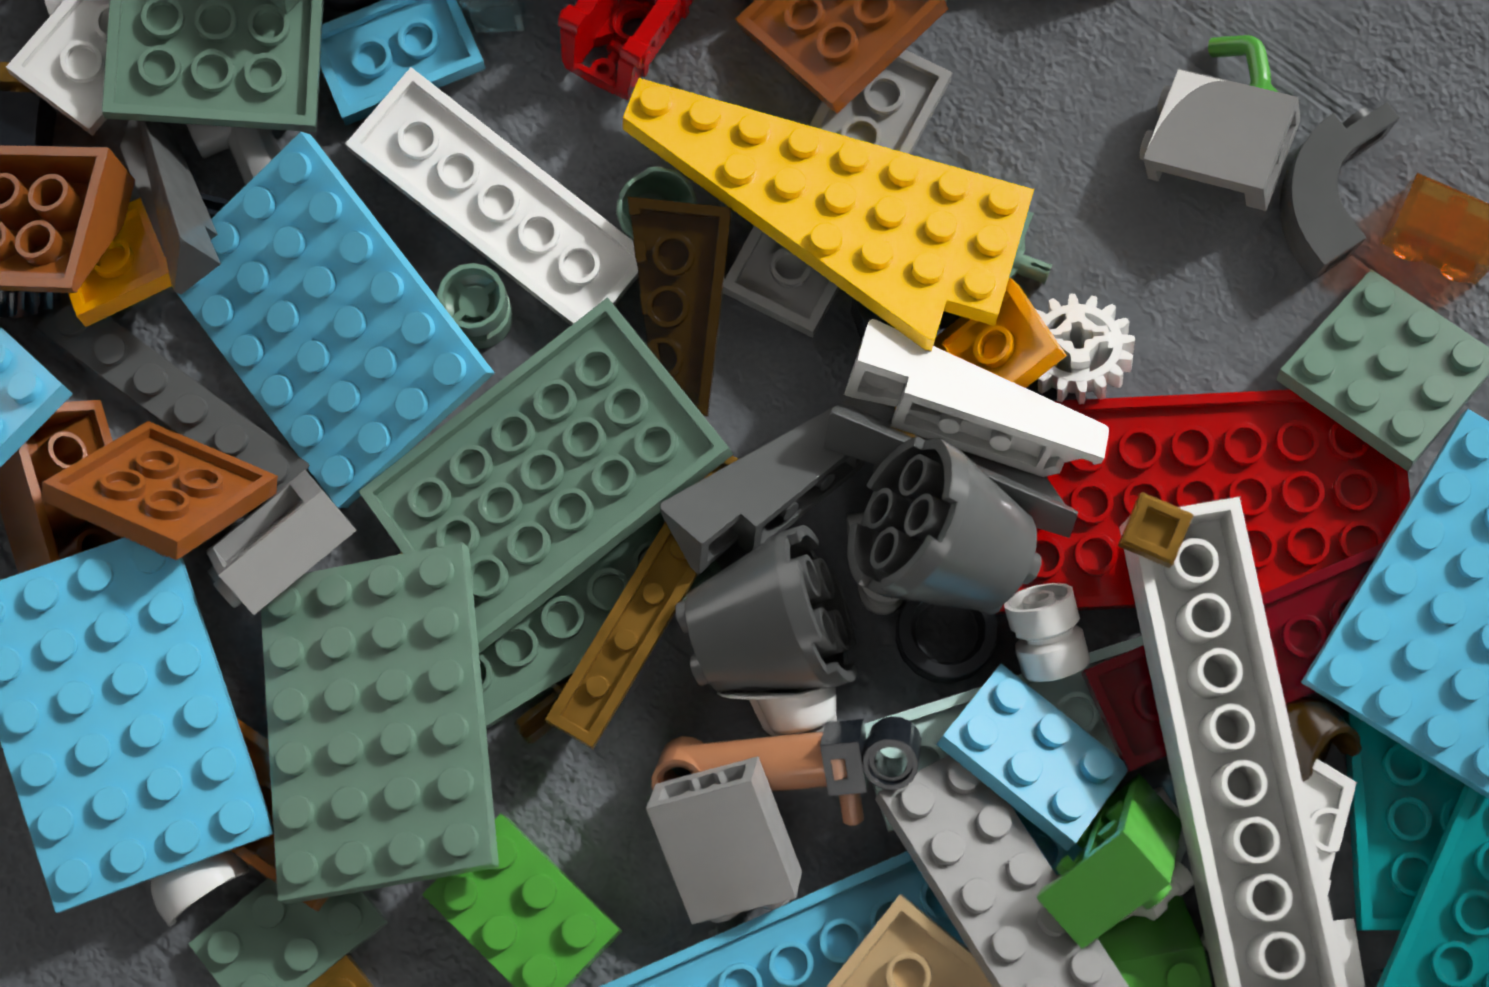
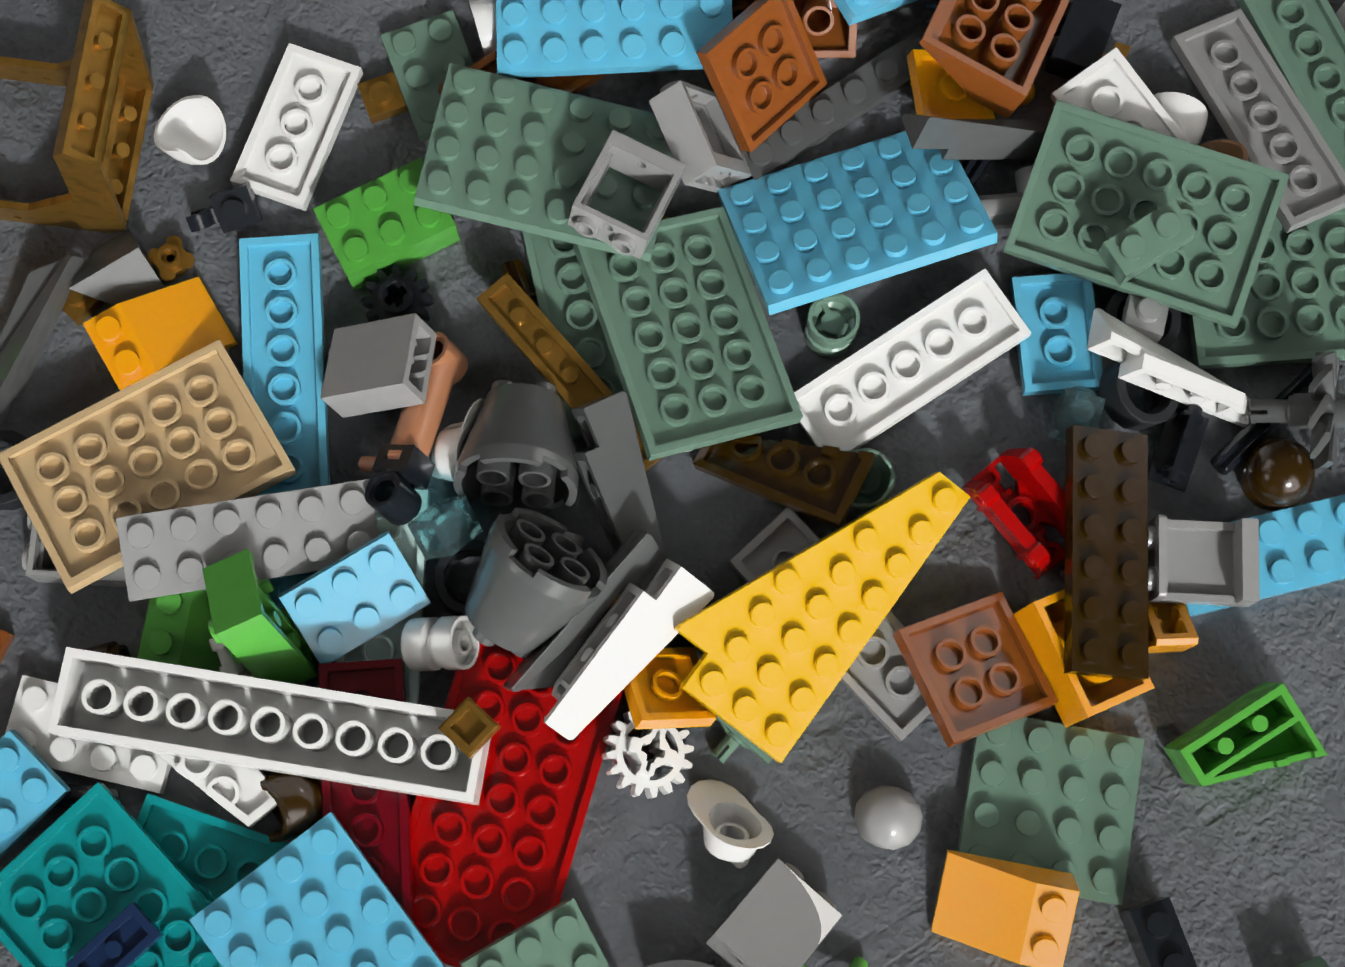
camera: 105 degrees right, 0 degrees up
(349, 582) = (641, 164): none -> light grey window
(623, 882) = (396, 285): none -> black gear
(901, 679) = (445, 527): none -> clear light blue brick
(1041, 66) = (888, 817): none -> light grey hair
(1122, 226) = (729, 822): none -> white piece

